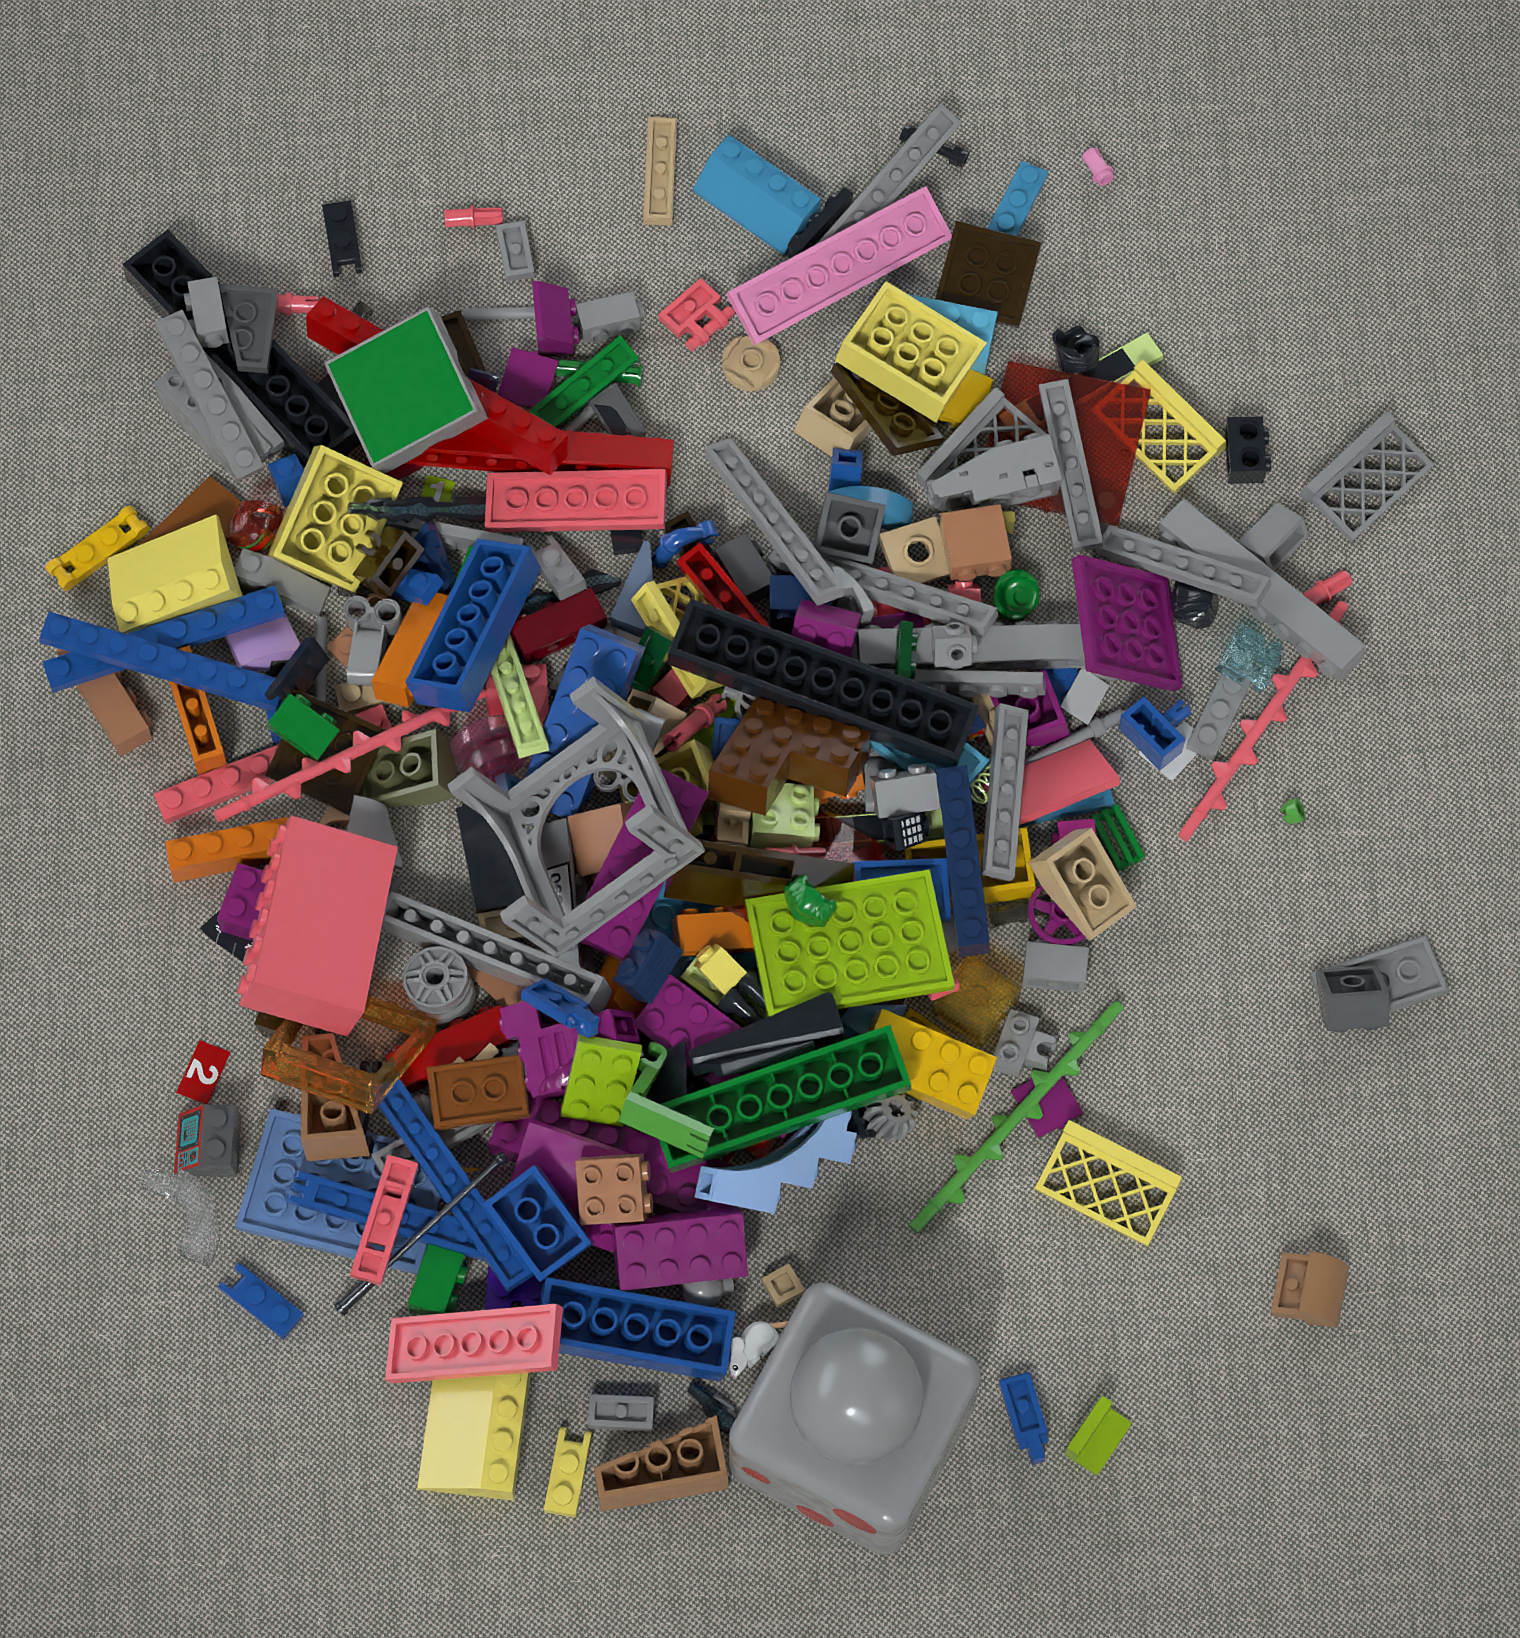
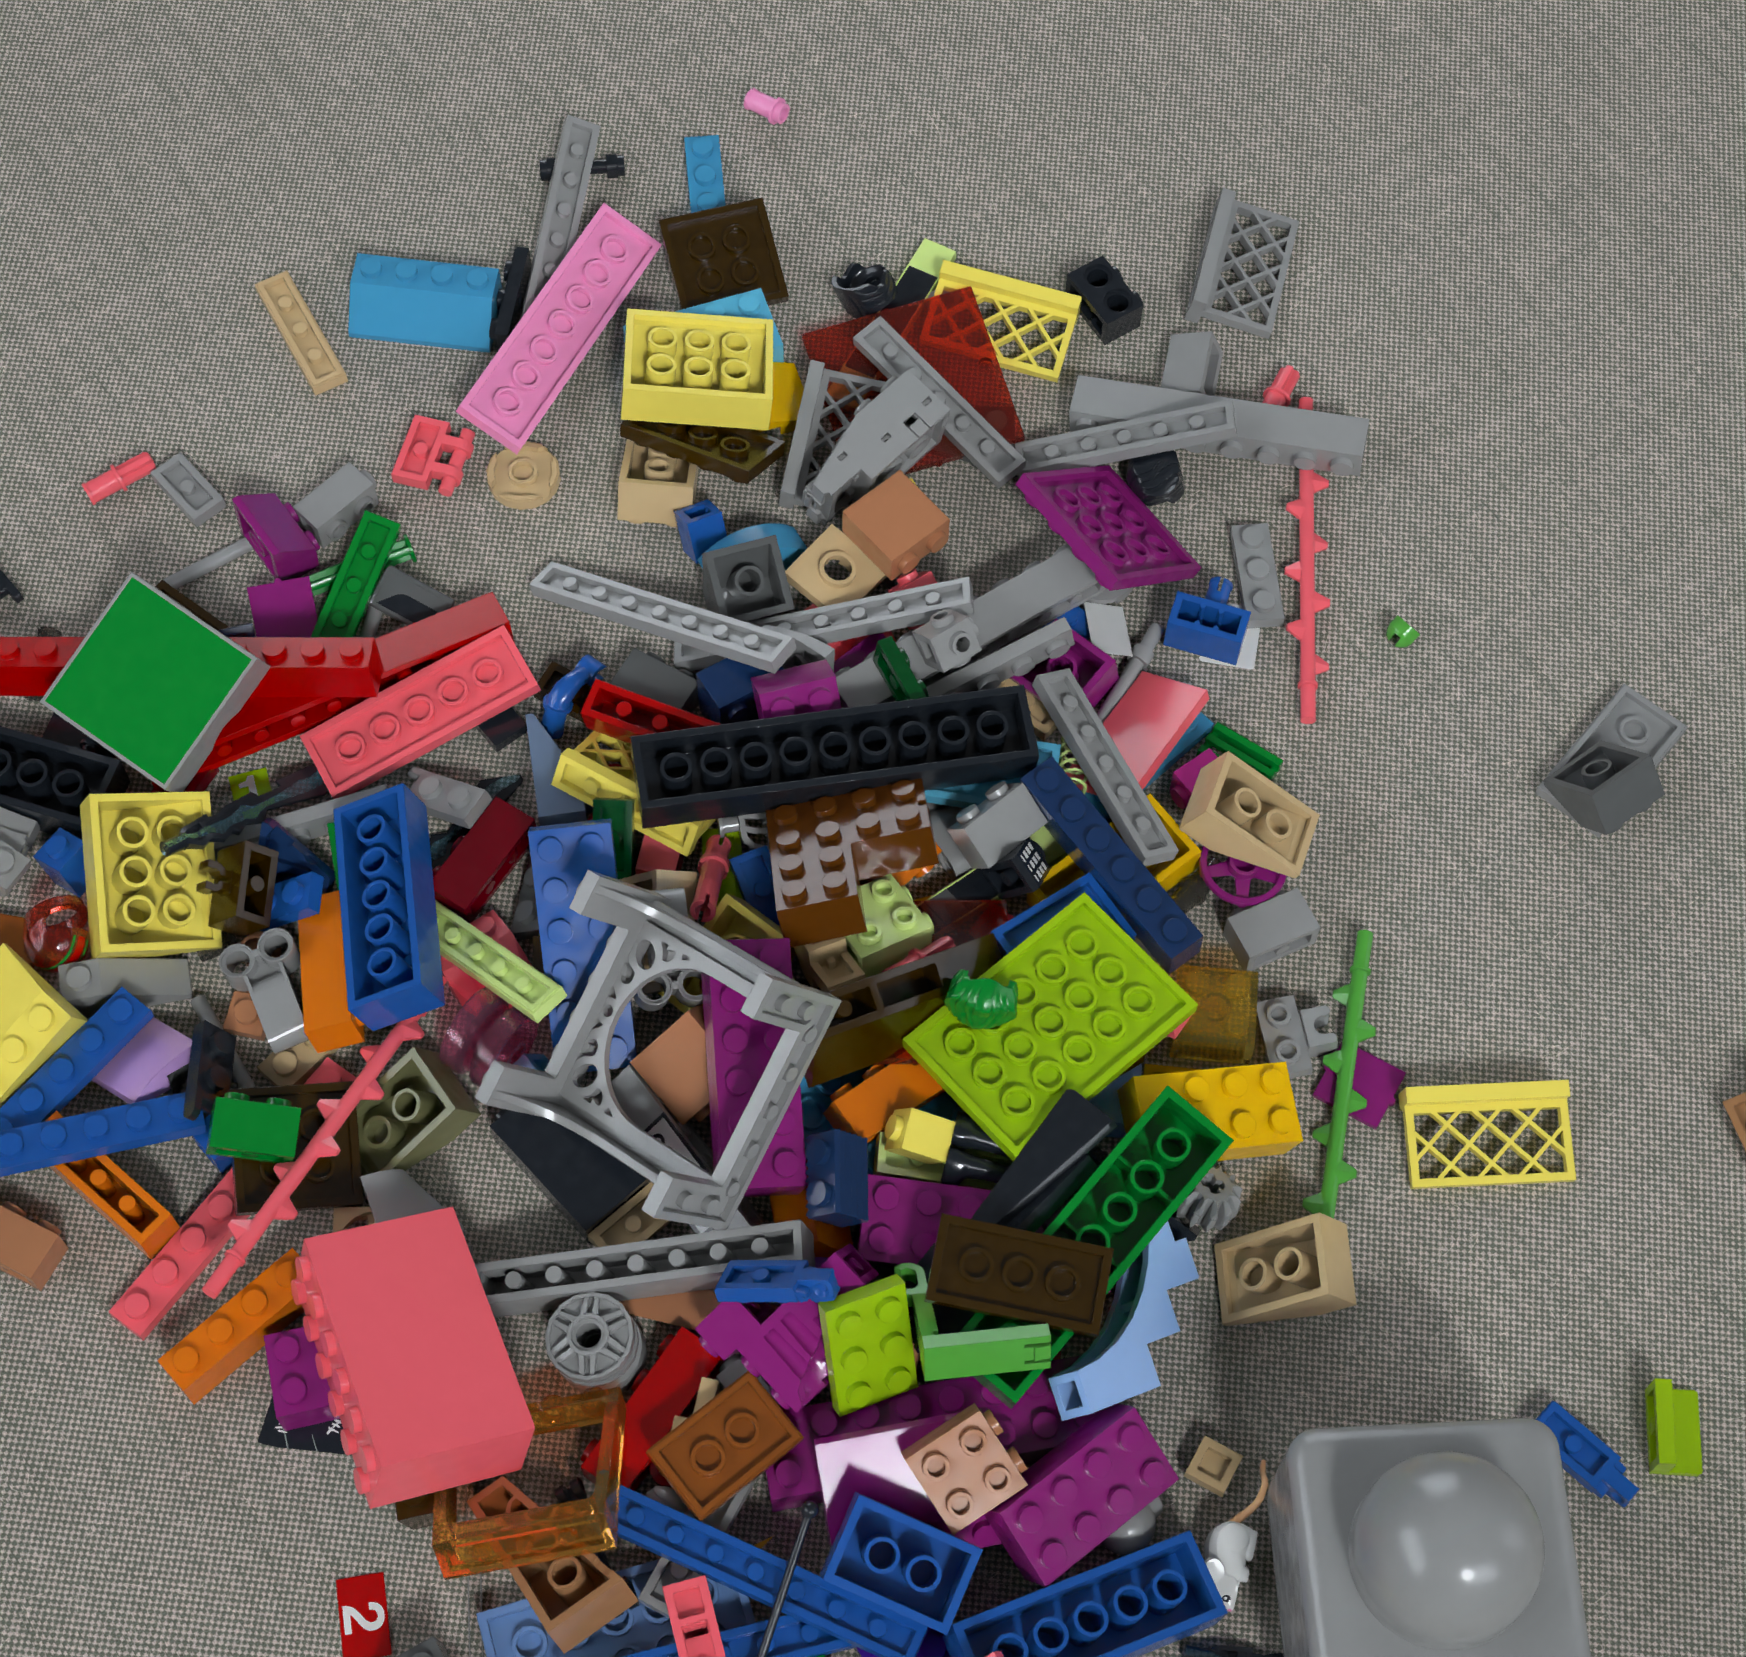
camera: 30 degrees left, 5 degrees down
(716, 1089) = (1019, 1275): none -> dark brown plate
(909, 1192) = (1285, 1271): none -> tan slope
(1016, 595) = (966, 556): green hair -> none
(1242, 651) = (1242, 498): clear light blue plate -> none

